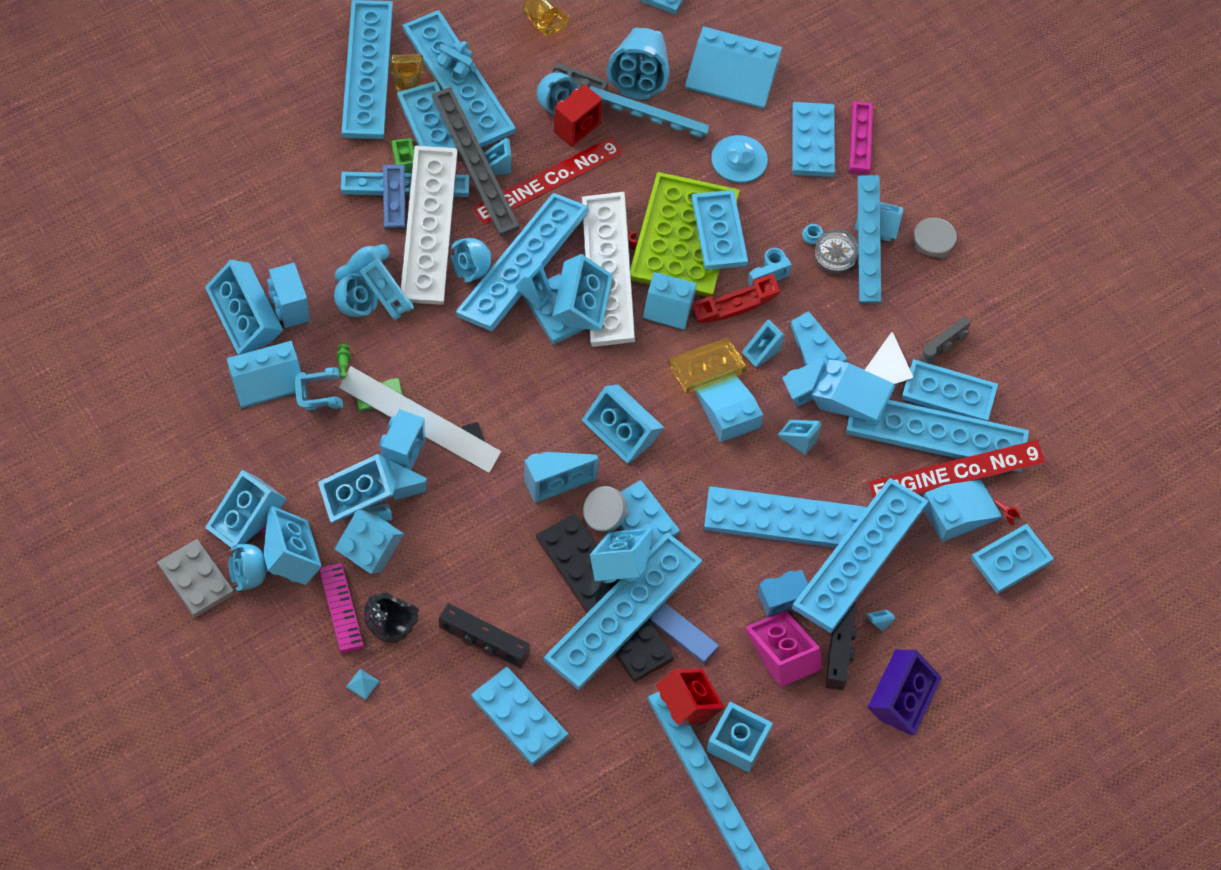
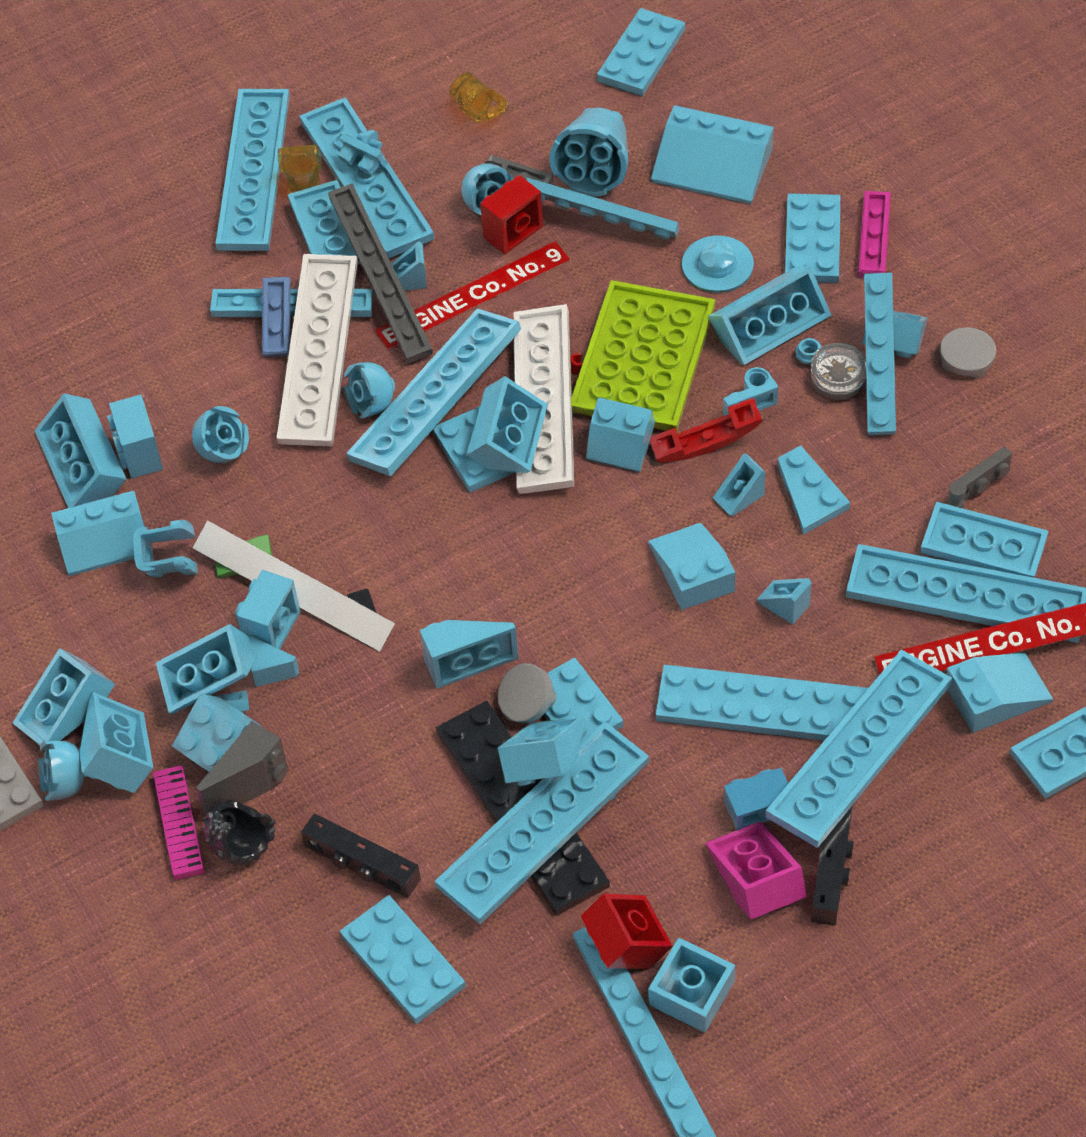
camera: 10 degrees right, 5 degrees down
(343, 358) = (200, 511): bright green piece -> none
(361, 259) = (236, 393): medium azure head -> none
(362, 684) = (200, 919): medium azure slope -> none
(386, 288) = (258, 426): medium azure plate -> none
(393, 569) = (245, 769): none -> dark grey slope
(403, 153) = (291, 264): bright green slope -> none
(536, 287) = (447, 419): medium azure slope -> none
(622, 423) = (553, 586): medium azure slope -> none
(684, 633) = (624, 852): medium blue tile -> none
(707, 365) = (666, 513): clear yellow tile -> none
(719, 230) = (686, 347): medium azure plate -> none
(782, 203) = (770, 314): none -> medium azure slope
(804, 380) = (794, 531): medium azure slope -> none
(852, 391) = (853, 541): medium azure slope -> none
(881, 619) = (887, 832): medium azure slope -> none
(890, 362) = (899, 515): white sticker -> none
(905, 691) = (917, 925): dark purple slope -> none
(1009, 512) = (1063, 693): red hand -> none

